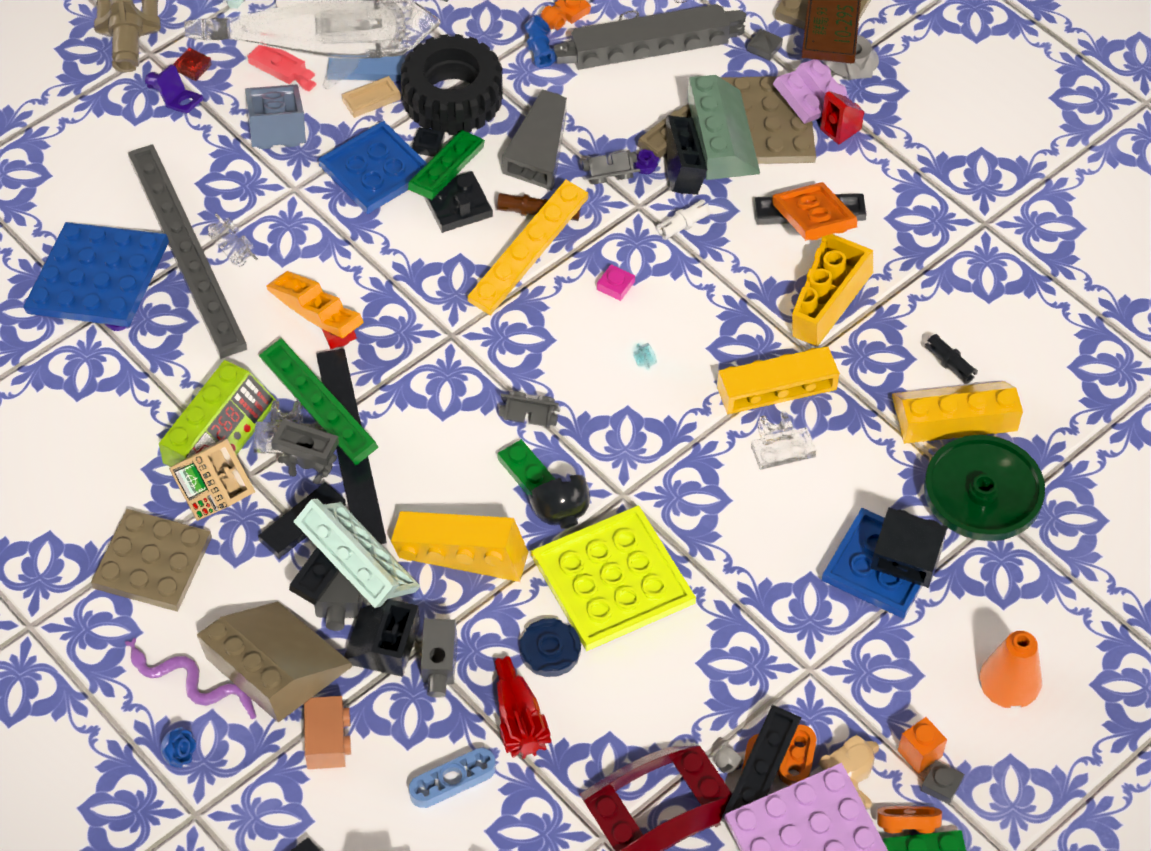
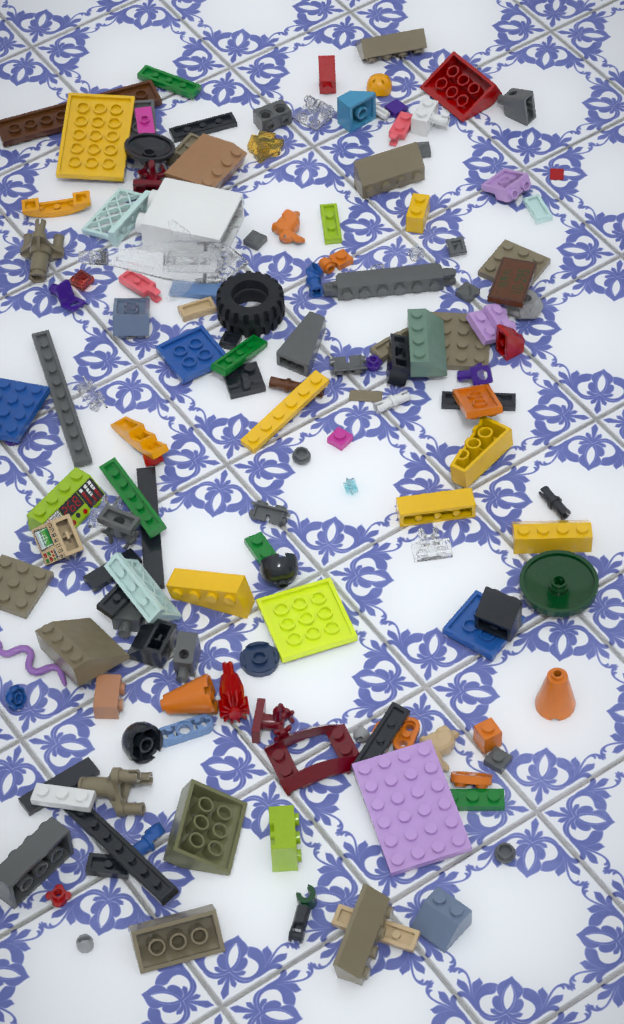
camera: 10 degrees right, 5 degrees down
(389, 805) = (141, 742): none -> black cylinder
(457, 724) = (191, 698): none -> orange cone
(562, 313) = (301, 455): none -> dark grey plate
(586, 752) = (270, 721): none -> dark red piece
(642, 212) = (364, 395): none -> dark tan sticker
(802, 169) = (476, 374): none -> dark purple bracket

